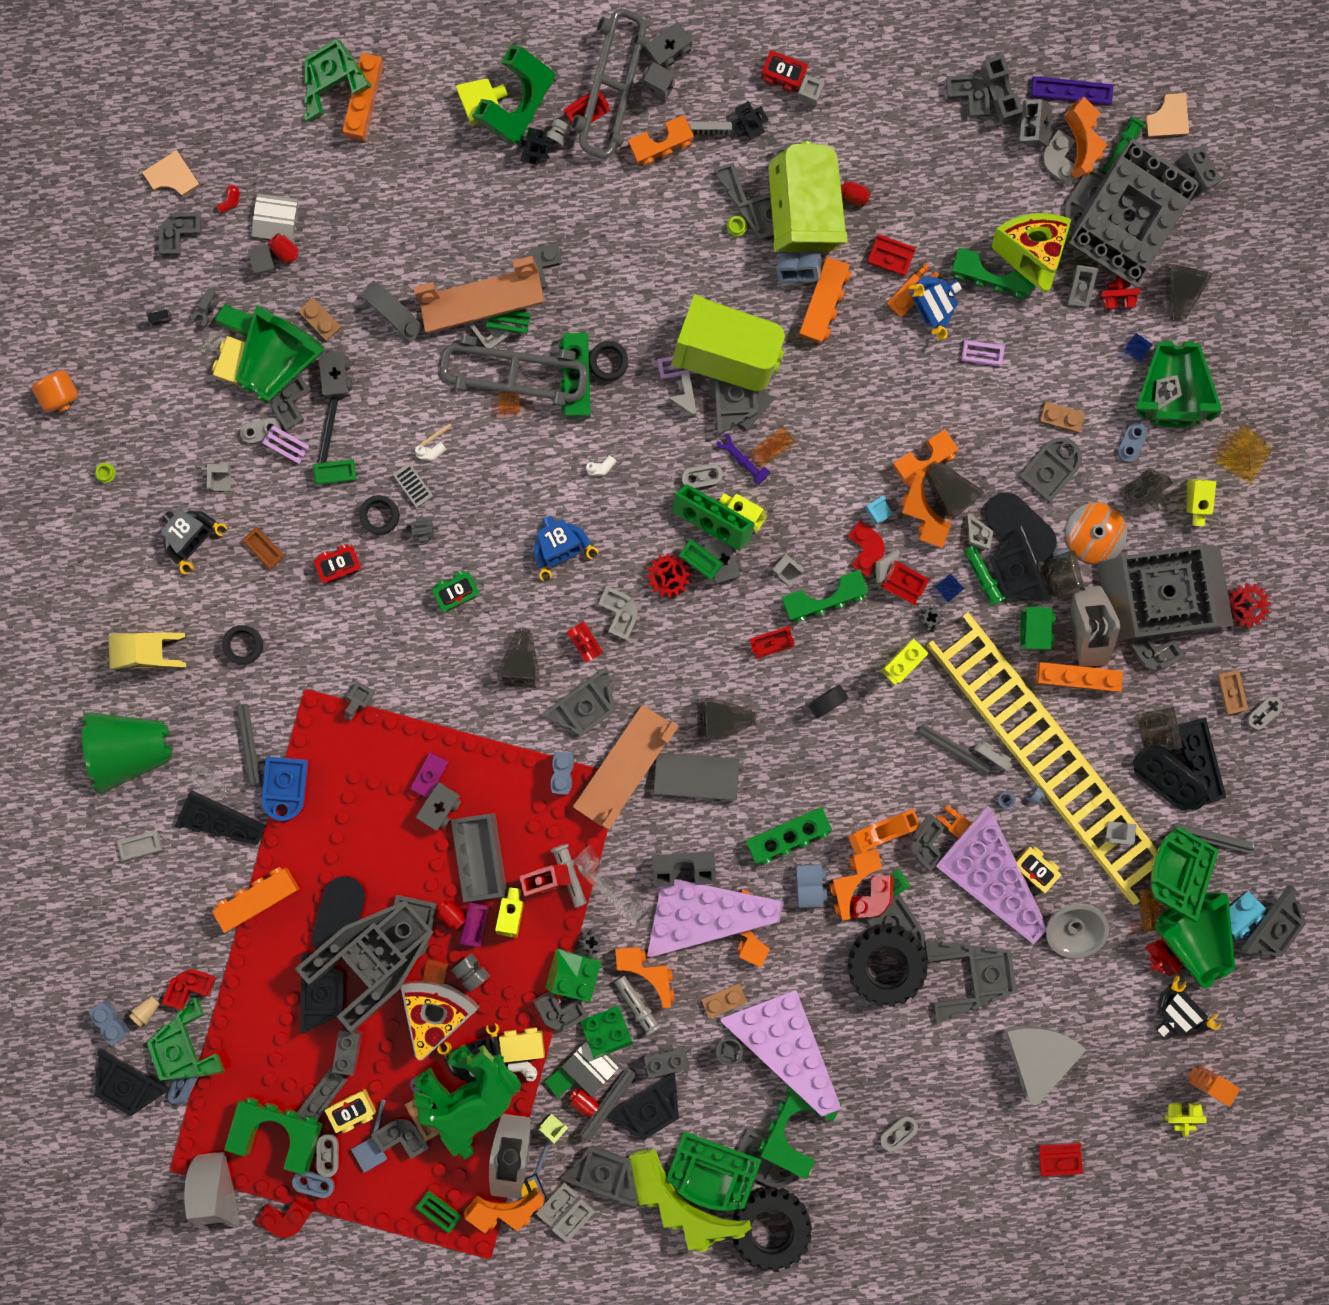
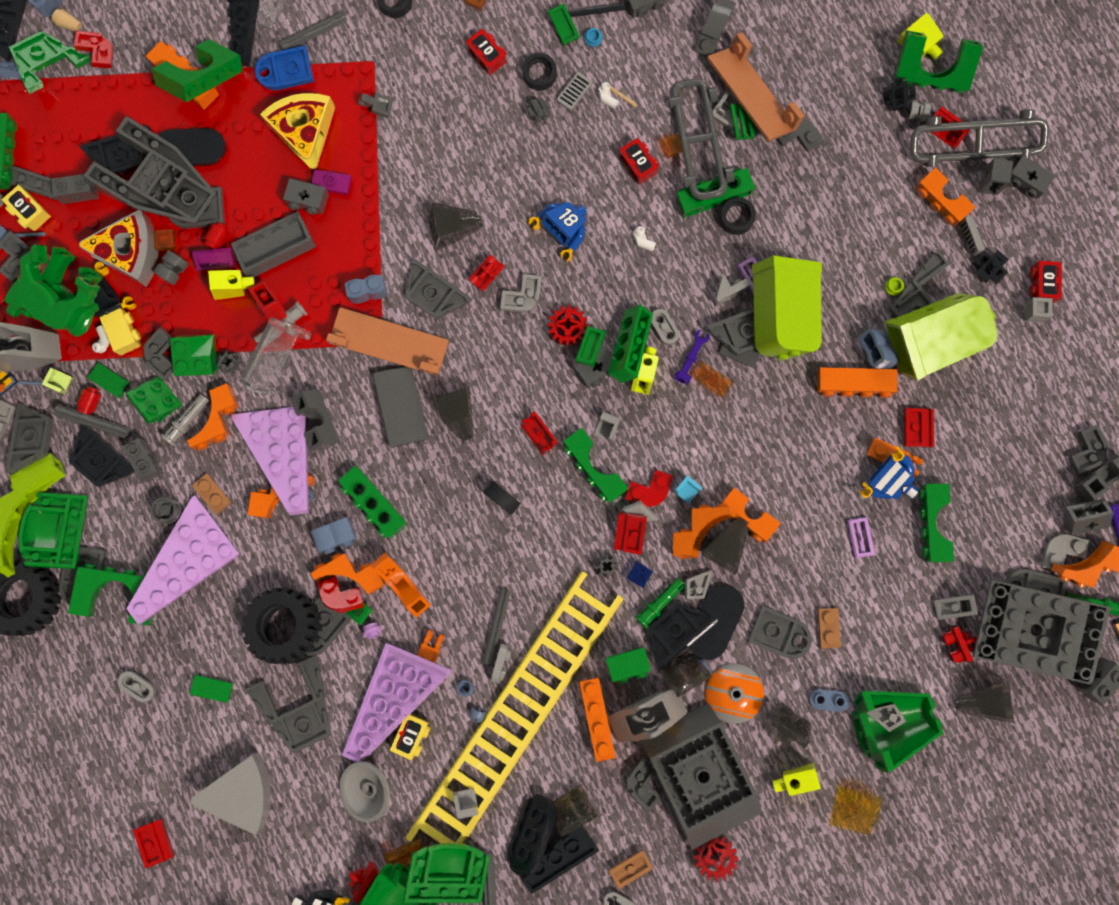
camera: 80 degrees right, 5 degrees down
(281, 890) = (186, 84): none -> green arch
(358, 787) = (301, 124): none -> piece
(359, 445) = (593, 37): none -> dark azure plate
(456, 591) = (494, 153): brick -> none
(515, 442) = (638, 160): none -> red brick
(589, 1072) = (114, 398): dark grey slope -> none
(855, 193) = (961, 377): red brick -> none
(904, 661) = (558, 553): neon yellow panel -> none
(919, 876) = (371, 631): none -> lavender plate
(922, 842) = (403, 623): dark grey plate -> none
(925, 1058) = (211, 688): none -> green tile
(1033, 245) = (976, 549): lime piece -> none
(1137, 347) = (917, 677): clear blue plate -> none

